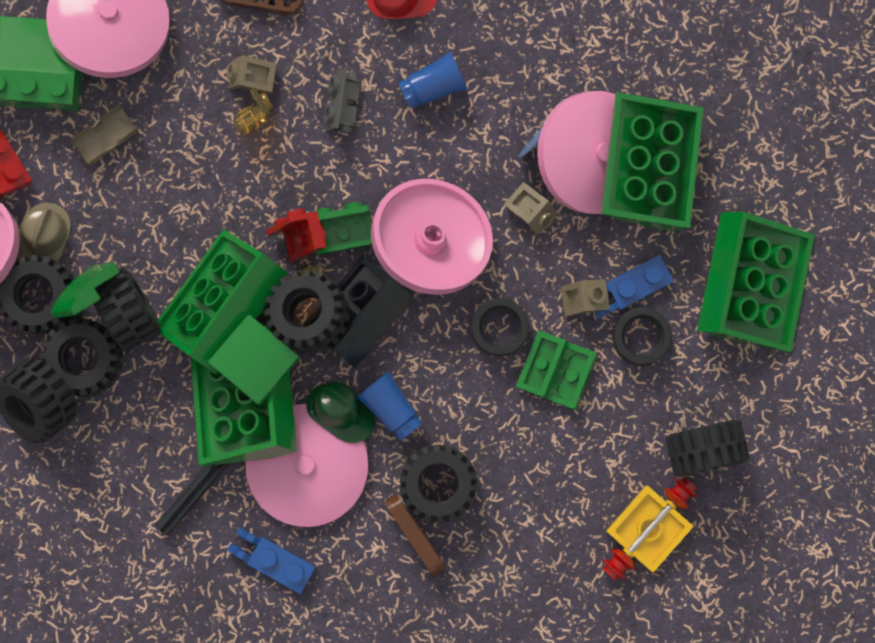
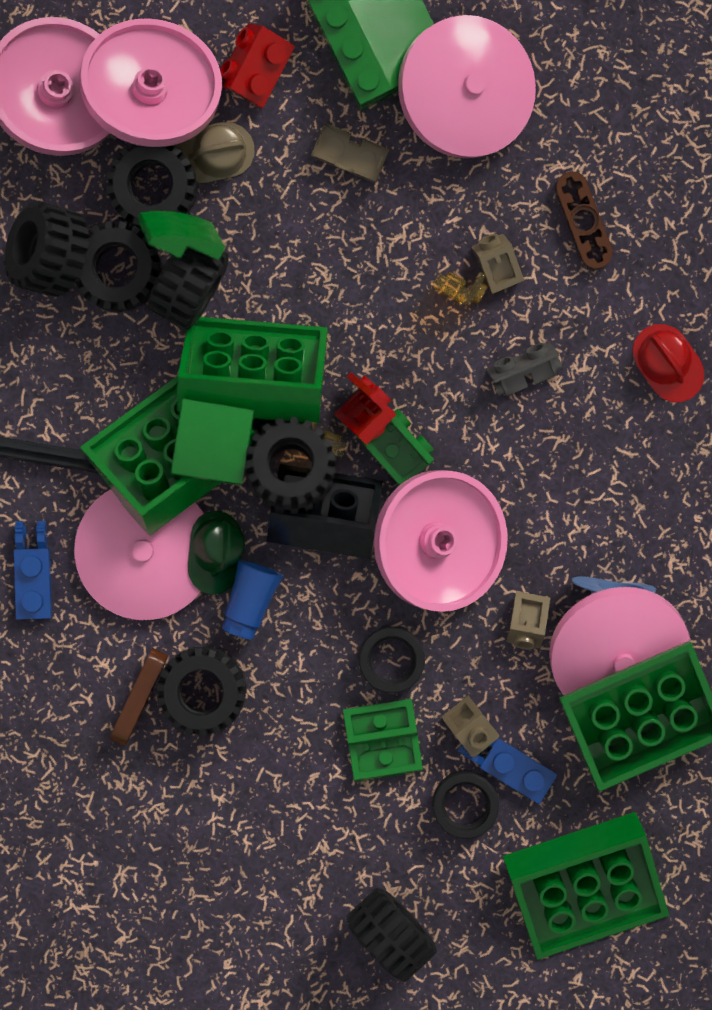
camera: 60 degrees right, 5 degrees up
(433, 82) = (597, 449): blue plant -> none
(649, 528) = (280, 921): yellow plate -> none

